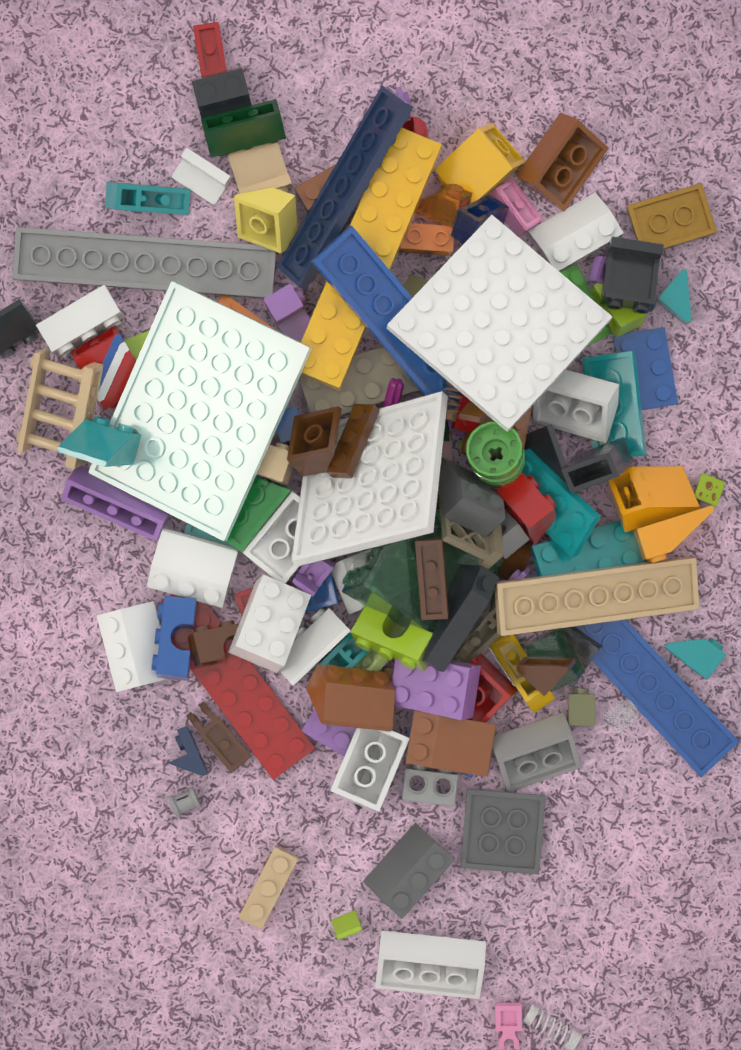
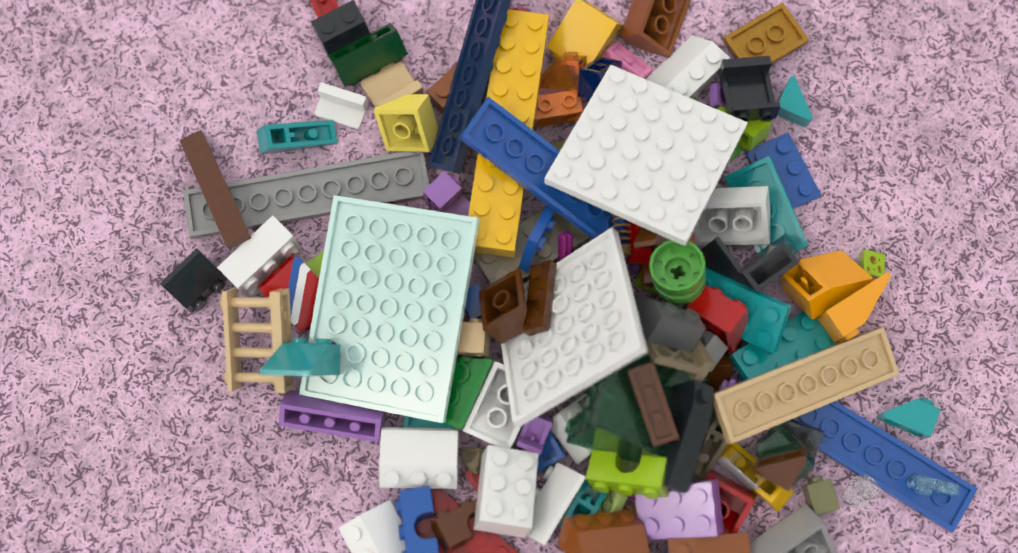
camera: 15 degrees left, 10 degrees down
(50, 236) = (215, 189): none -> reddish brown tile
(245, 581) = (471, 458): none -> dark tan tile
(366, 380) = (537, 238): none -> blue wing
(685, 726) = (927, 485): none -> clear light blue plate

